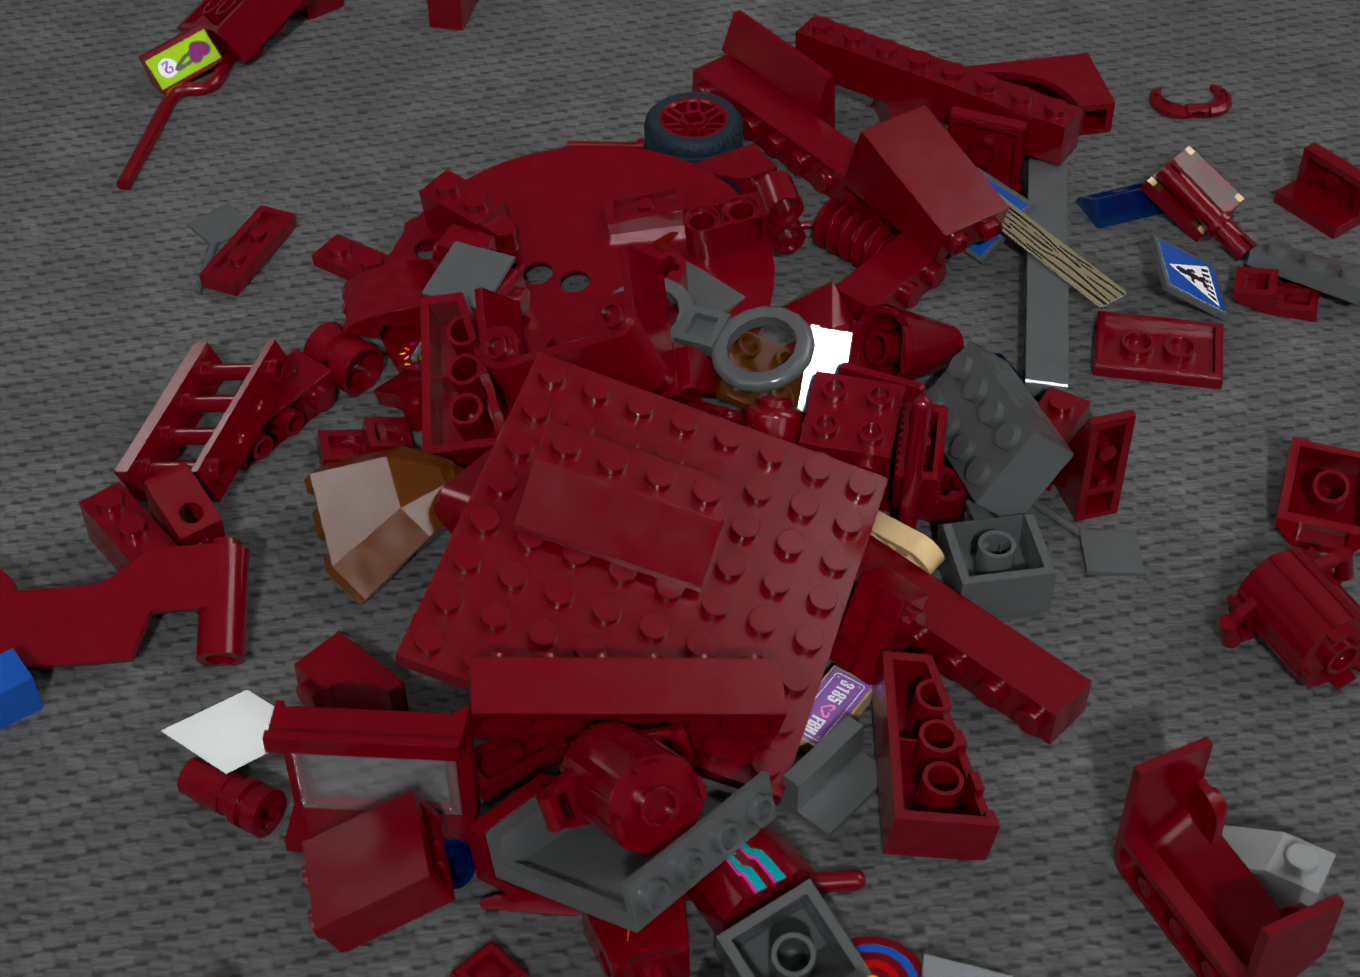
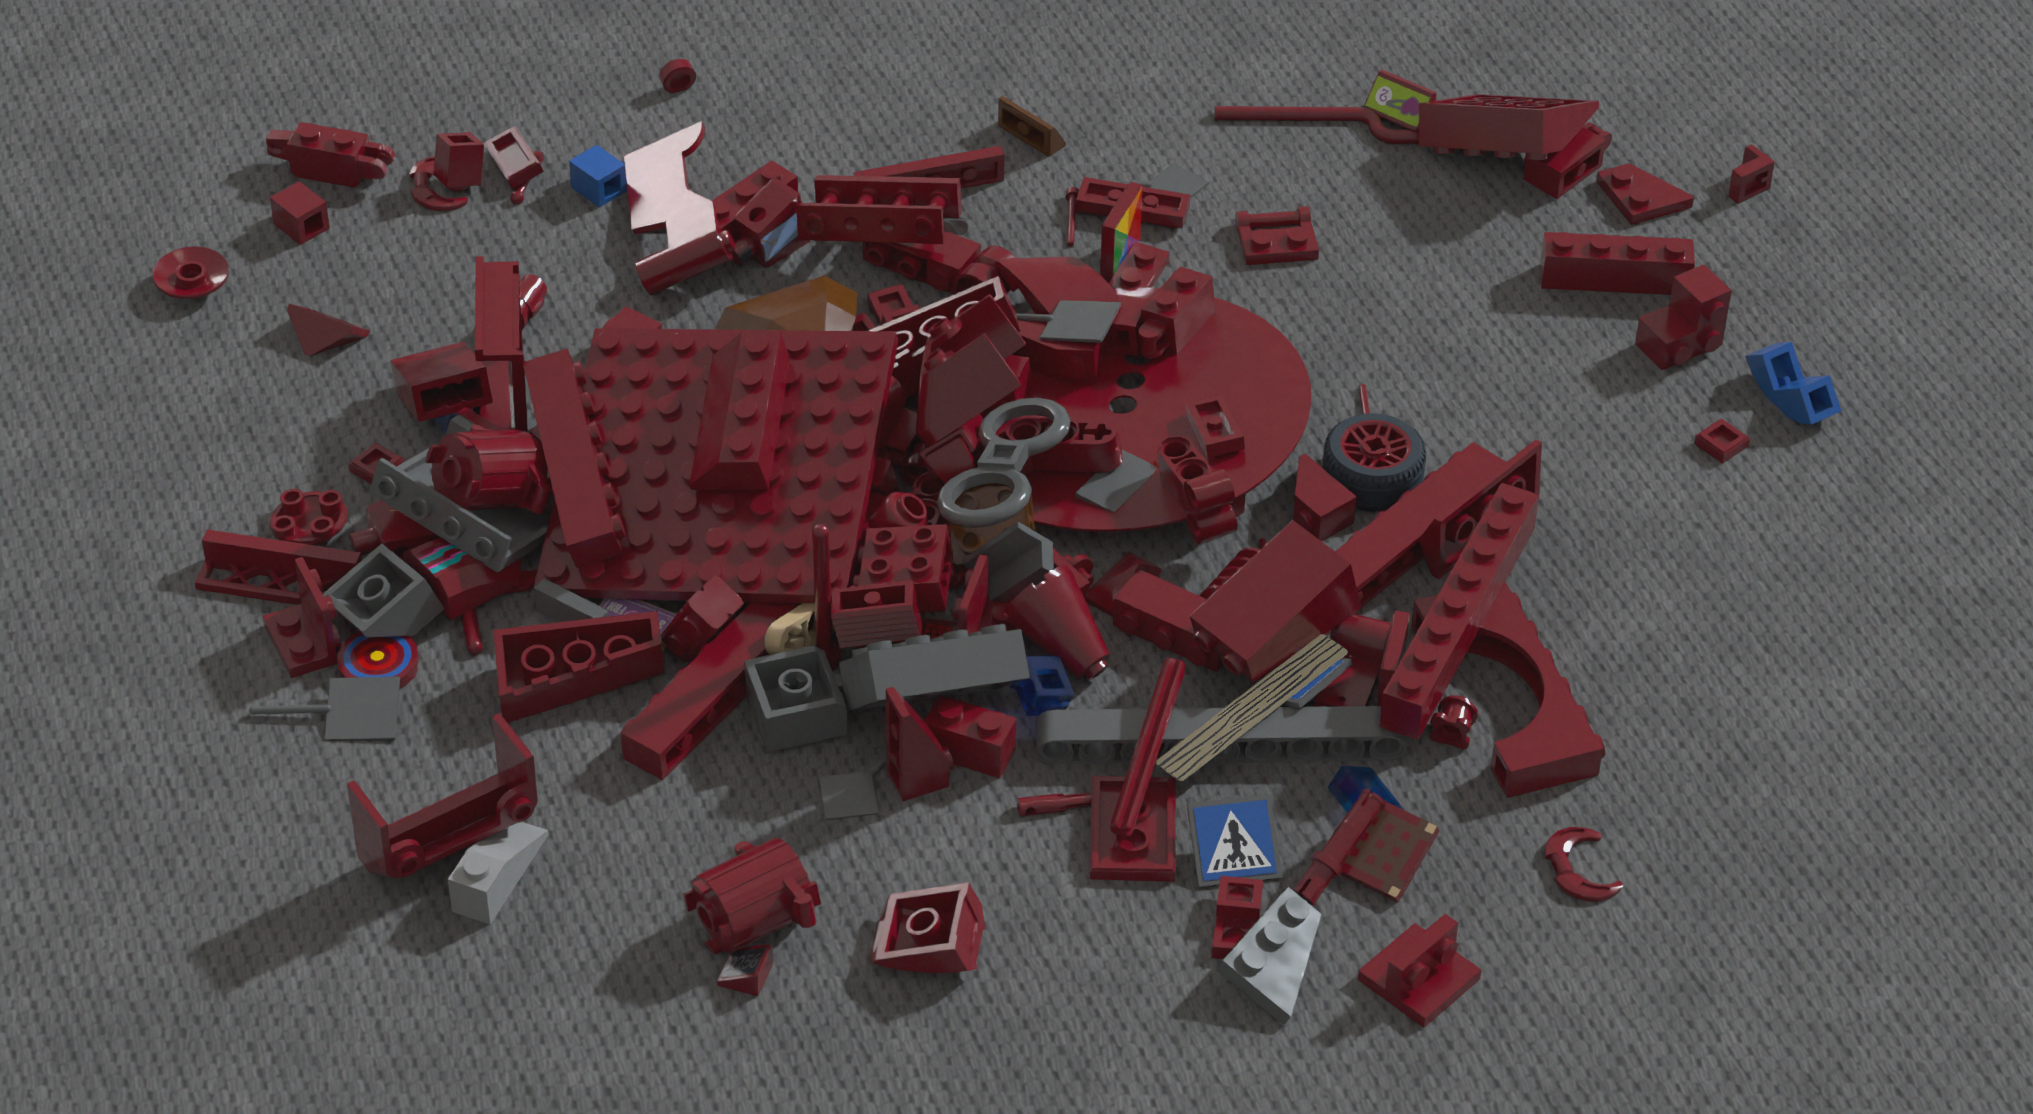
camera: 80 degrees right, 0 degrees up
(88, 310) = (1028, 127): none -> reddish brown slope
(140, 394) = (972, 167): none -> dark red fence
(210, 295) = (1071, 195): none -> dark red piece
(226, 732) = (574, 299): white sticker -> none
(317, 244) = (1121, 230): none -> tile
(347, 167) = (1277, 244): none -> dark red plate
(1088, 304) = (1147, 747): none -> dark red axle
(1124, 396) = (1052, 803): none -> dark red piece

